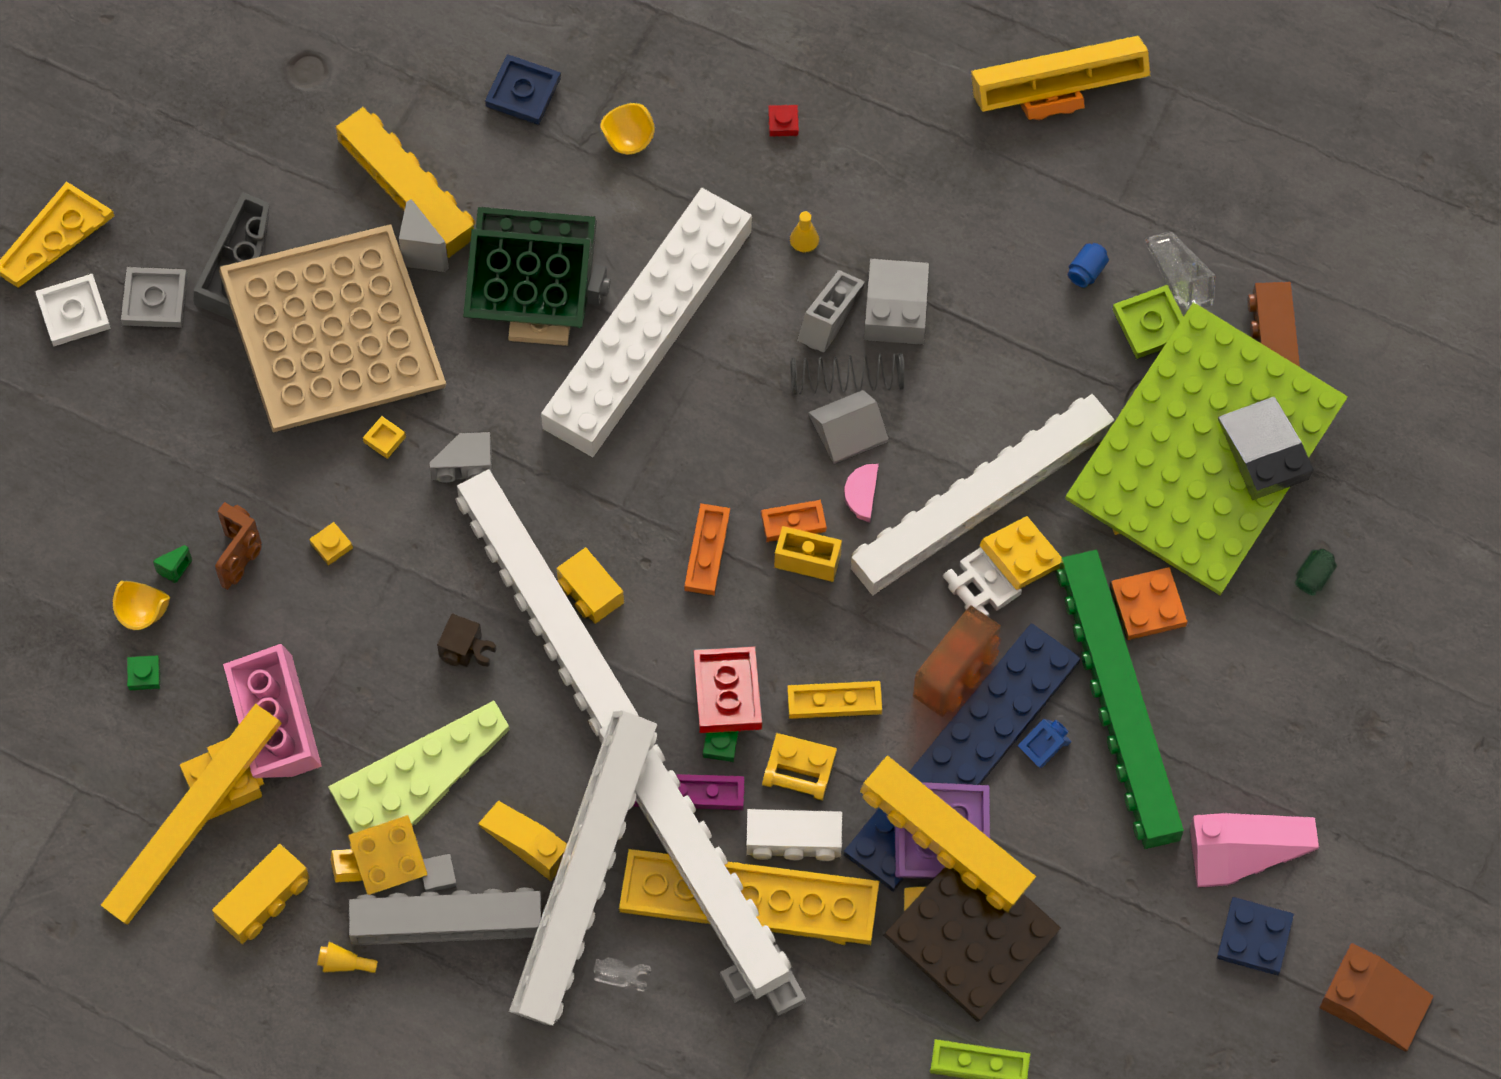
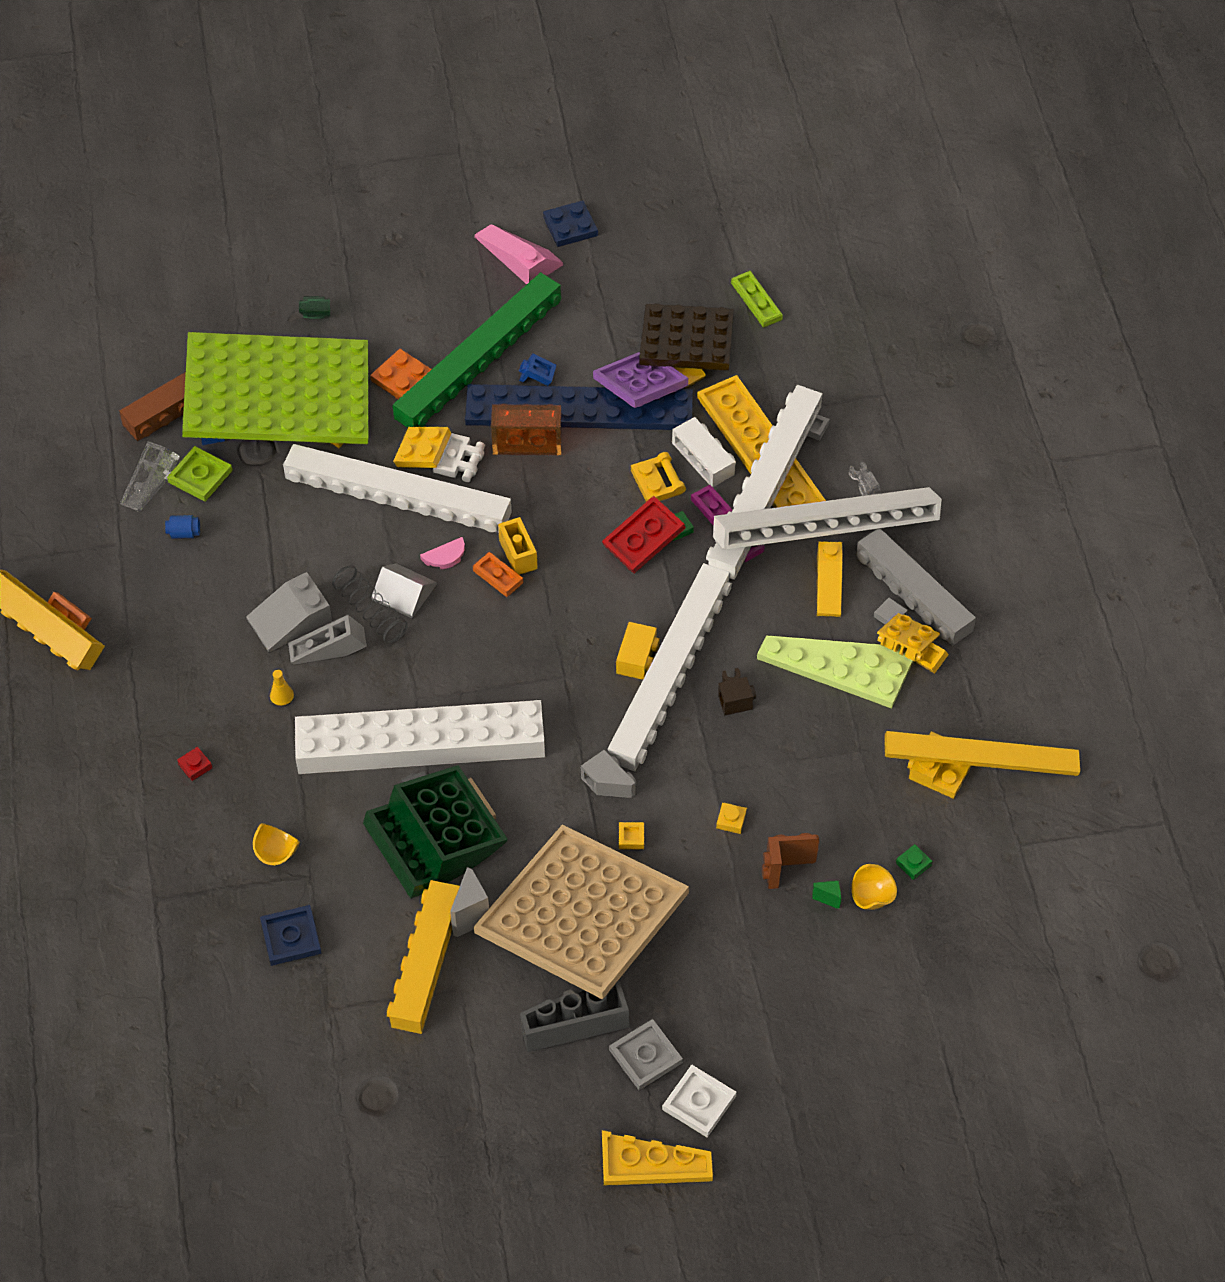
camera: 125 degrees left, 10 degrees down
(261, 894) = (992, 689): yellow brick -> none
(273, 684) = (866, 769): bright pink slope -> none
(338, 959) = (992, 626): yellow cone -> none
(707, 549) = (556, 607): orange plate -> none
(834, 699) = (600, 484): yellow plate -> none
(947, 834) = (648, 357): yellow brick -> none
(1265, 448) = (260, 345): slope -> none
(1376, 998) = (561, 158): dark orange slope -> none

